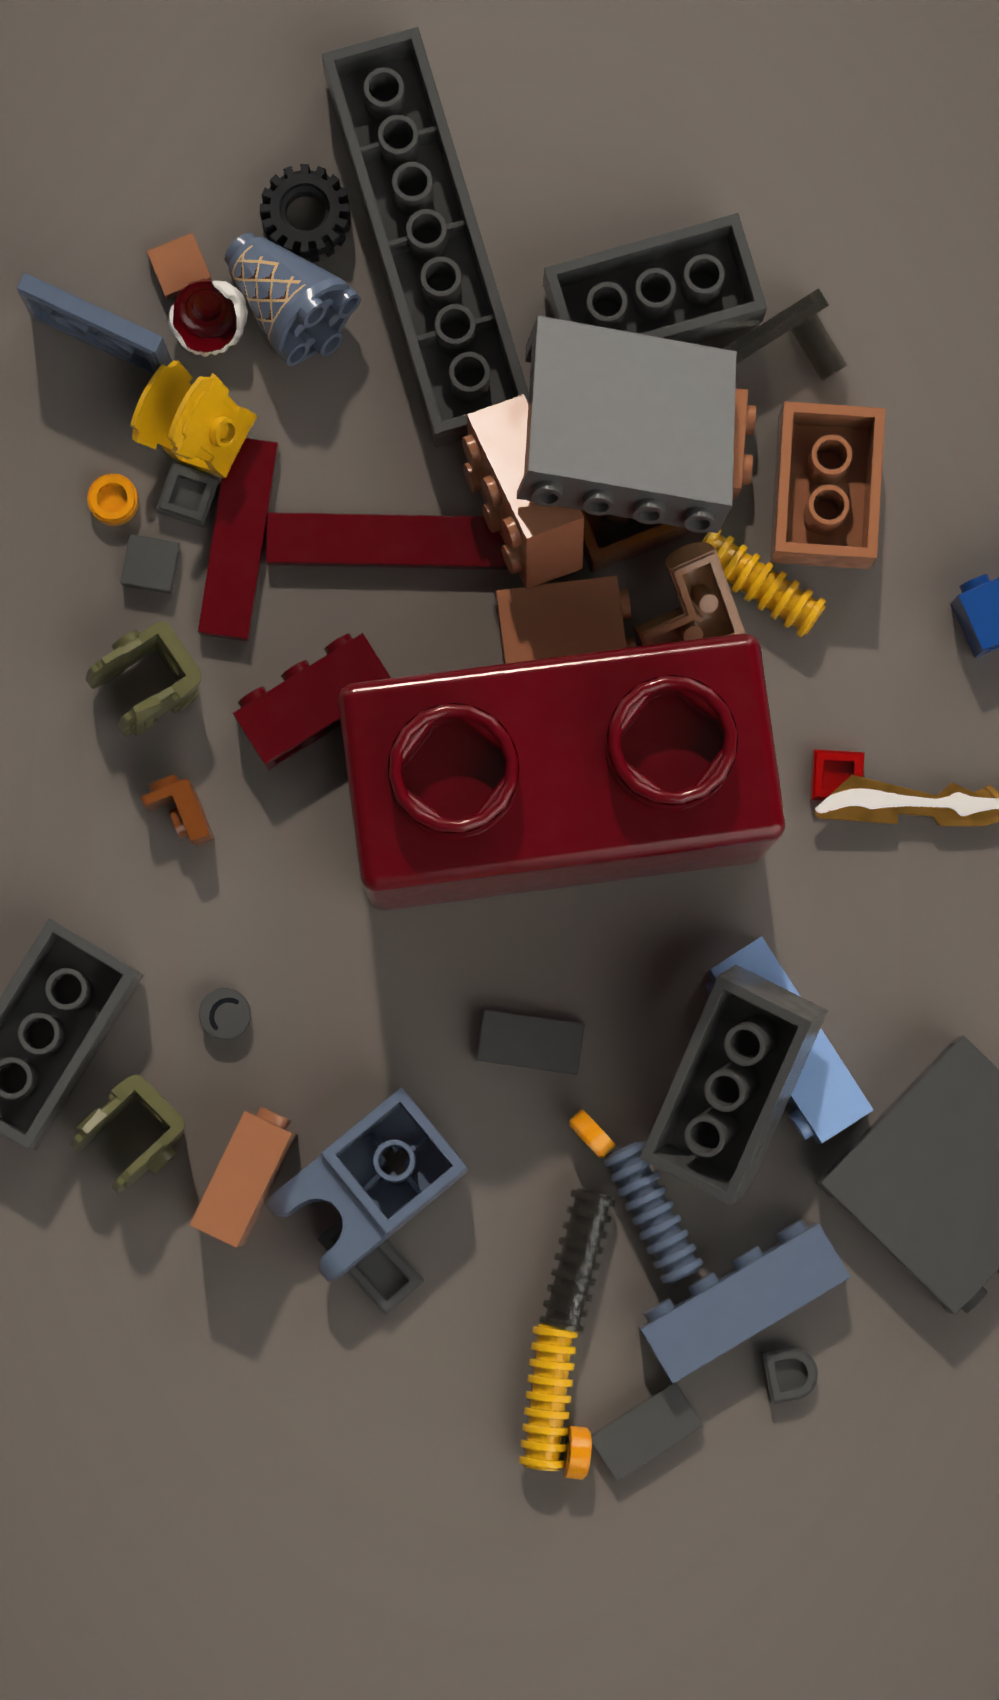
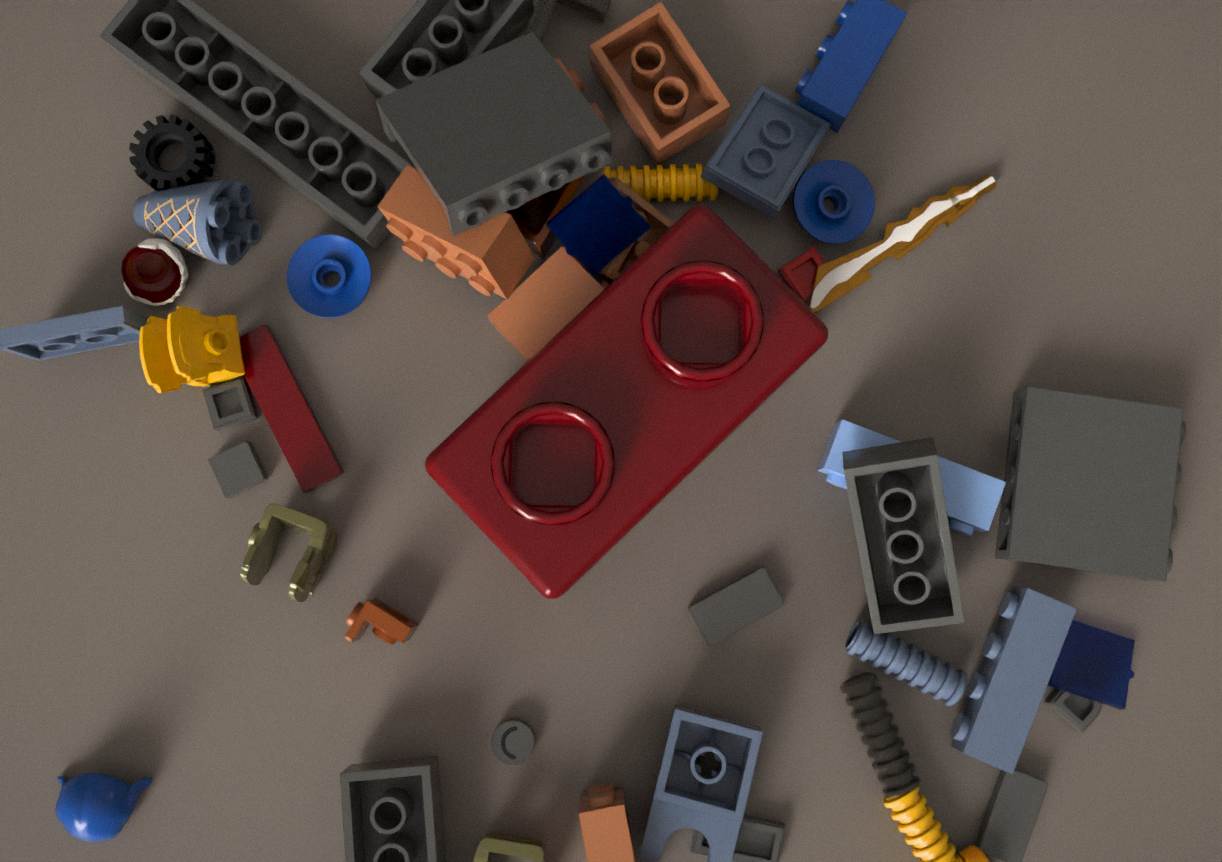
camera: 30 degrees left, 0 degrees up
(113, 499) = (180, 444): light orange tile -> none
(178, 264) = (108, 252): nougat tile -> none
(307, 701) = (410, 495): dark red brick -> none
(365, 417) = (315, 262): none -> blue dish
(382, 541) = (386, 339): dark red tile -> none
(591, 1134) = (825, 639): light orange tile -> none
(664, 581) = (598, 224): none -> clear blue piece
(831, 1345) = (1094, 665): none -> clear blue piece
(885, 625) = (766, 151): none -> sand blue tile
(938, 729) = (847, 190): none -> blue dish

